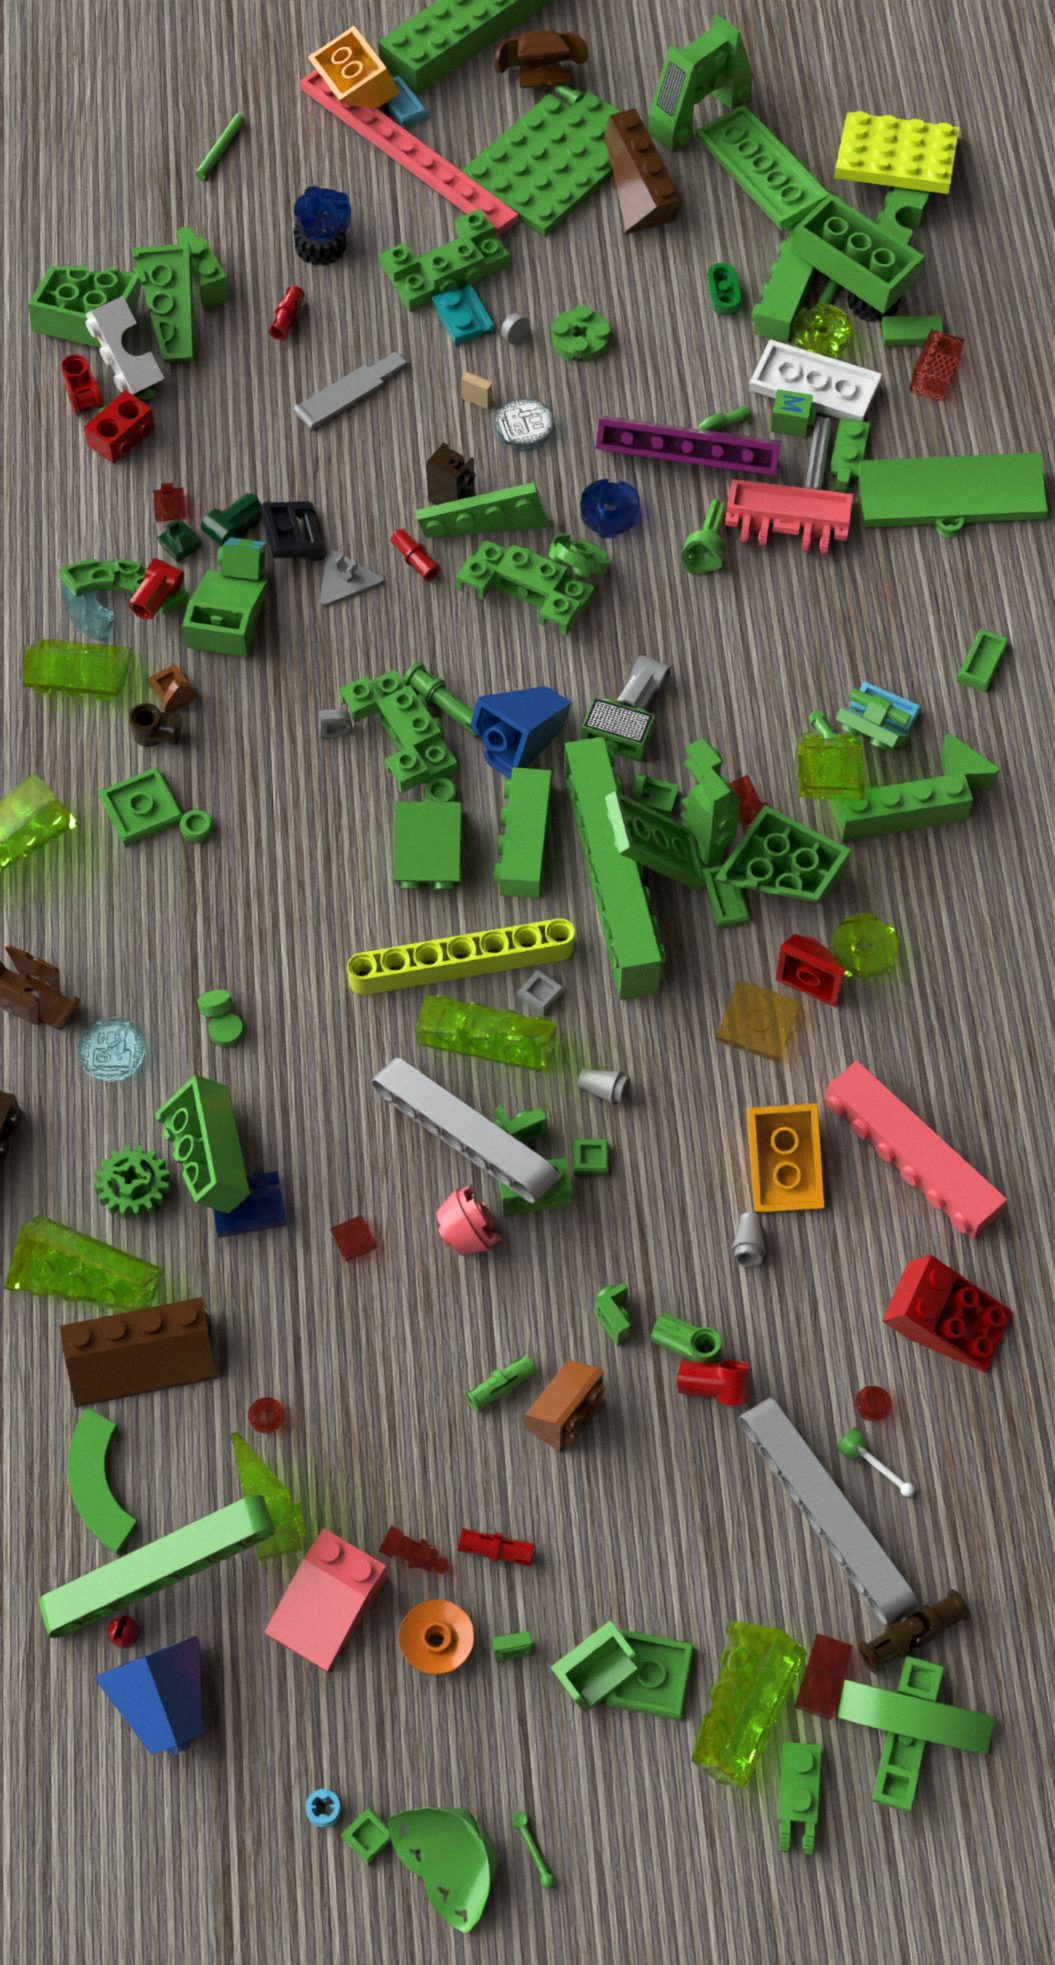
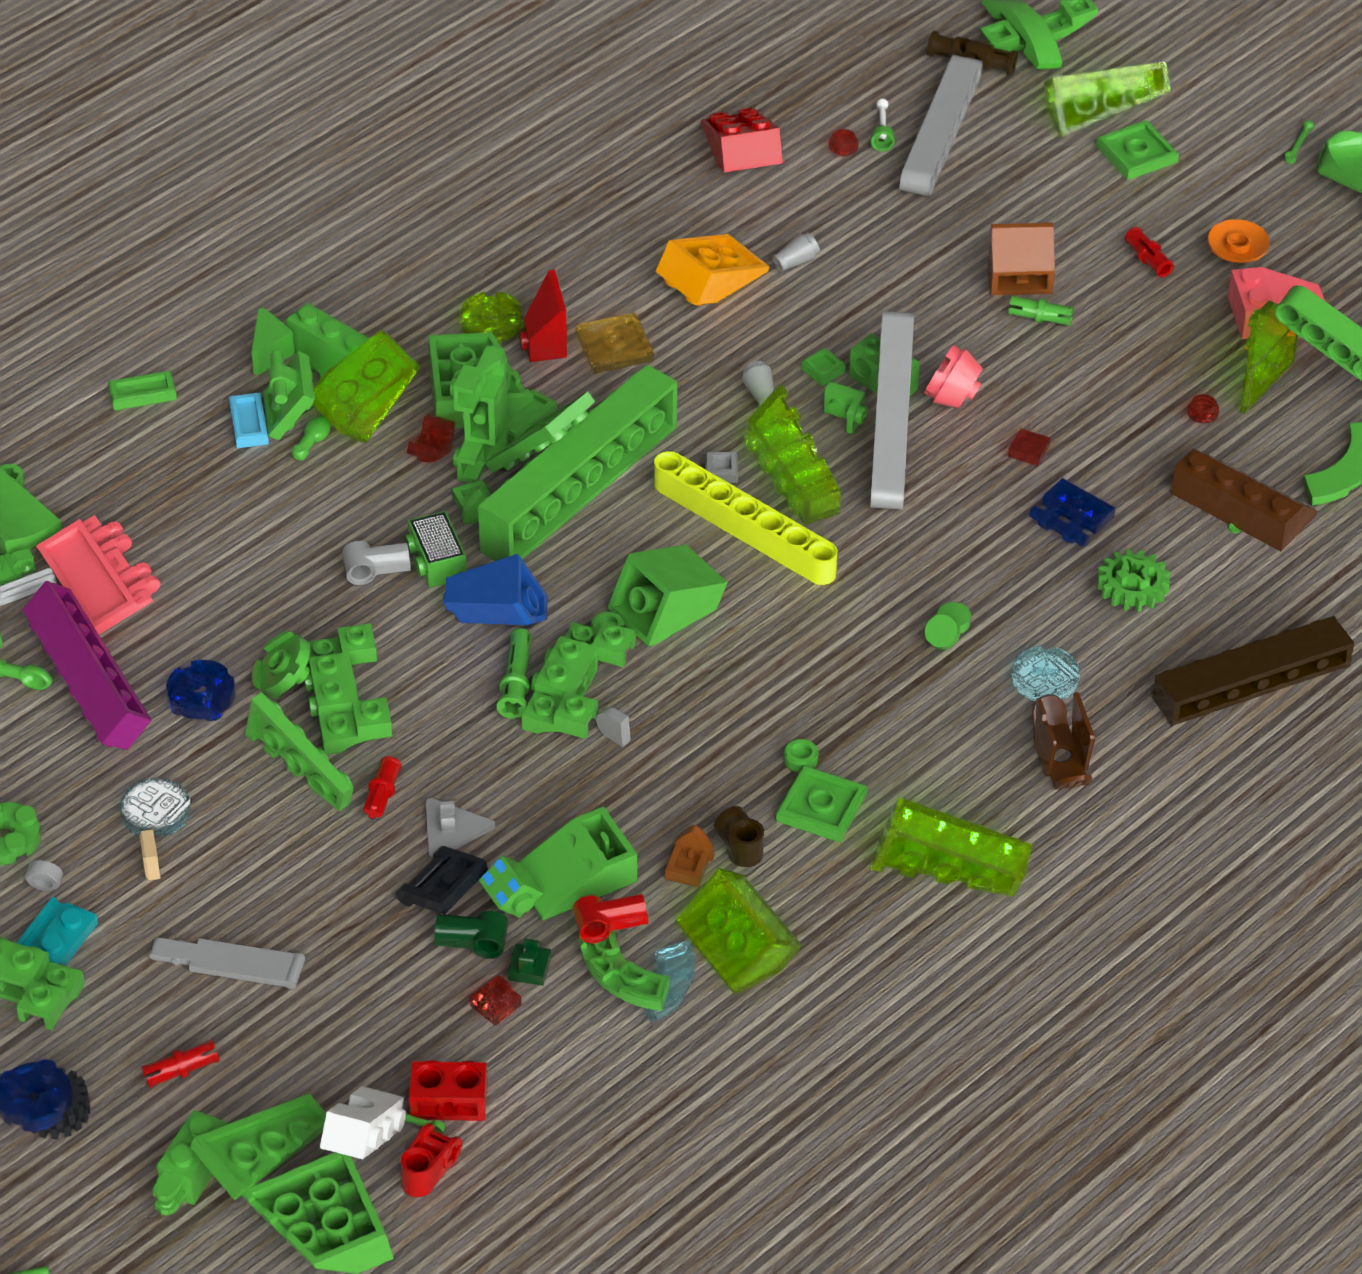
camera: 130 degrees left, 15 degrees down
(79, 1267) = (1227, 559): clear neon green wedge -> none
(206, 1143) = (1058, 550): bright green wedge -> none
(418, 1554) = (1205, 295): clear red piece -> none
(449, 476) = (285, 790): dark brown hinge -> none
(512, 1646) = (1200, 207): bright green tile -> none
(524, 833) = (593, 546): bright green brick -> none
(597, 1666) = (1165, 163): bright green panel -> none
(613, 1318) = (927, 287): bright green bracket -> none
(686, 1338) = (905, 238): bright green piece -> none
(705, 548) = (193, 595): bright green piece -> none
(724, 1381) = (917, 209): red piece -> none
(799, 1792) = (1131, 52): bright green hinge -> none
(823, 1676) = (1031, 82): clear red plate -> none
(914, 1150) = (636, 209): coral brick -> none

